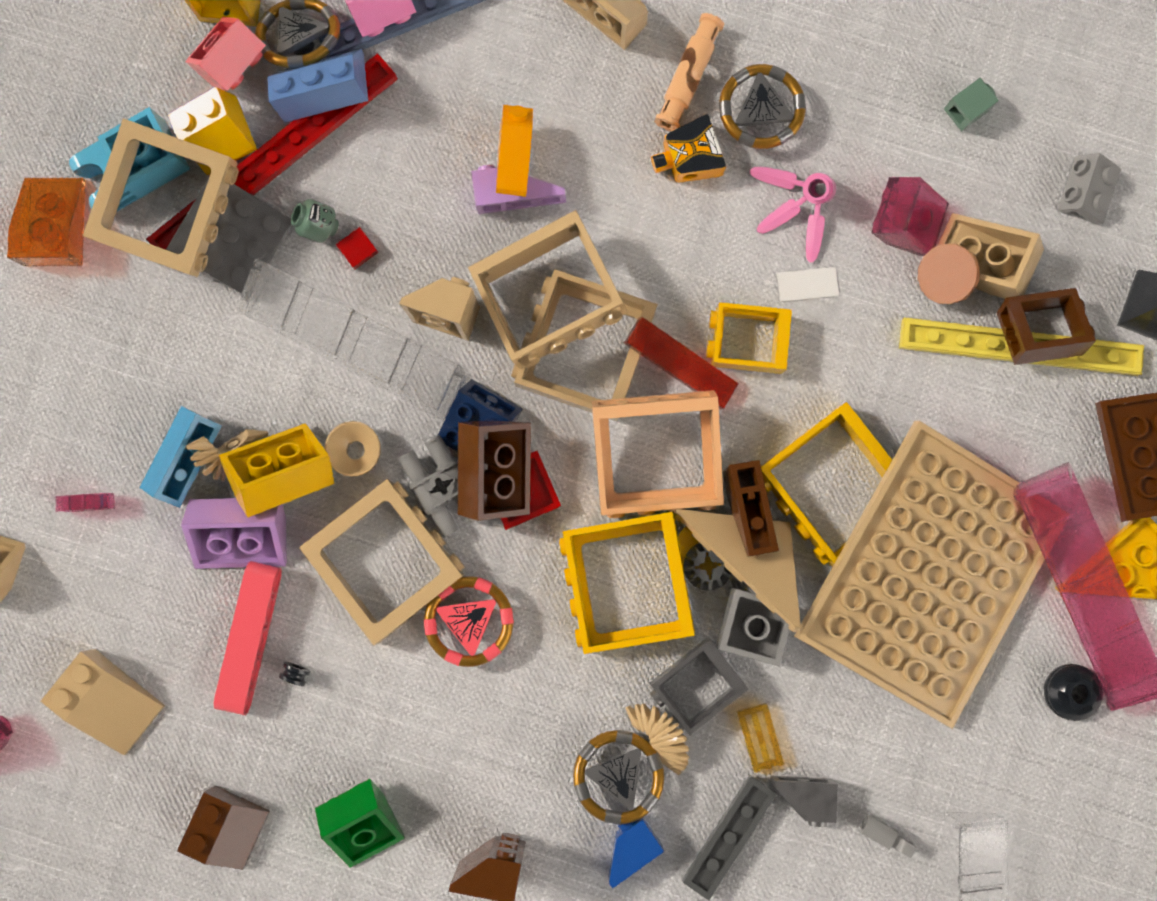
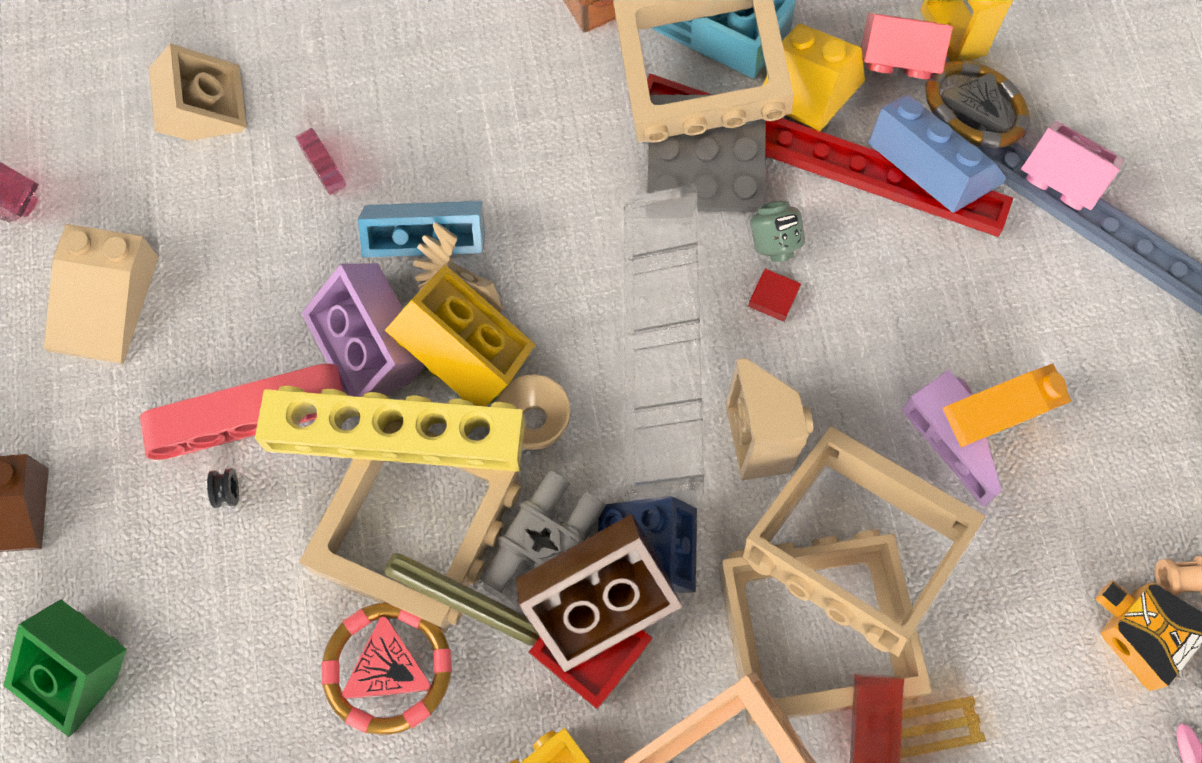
camera: 60 degrees right, 15 degrees down
(265, 605) = (284, 408): none -> light yellow brick
(452, 554) = (460, 598): none -> olive axle
(683, 289) = (971, 720): none -> clear yellow tile

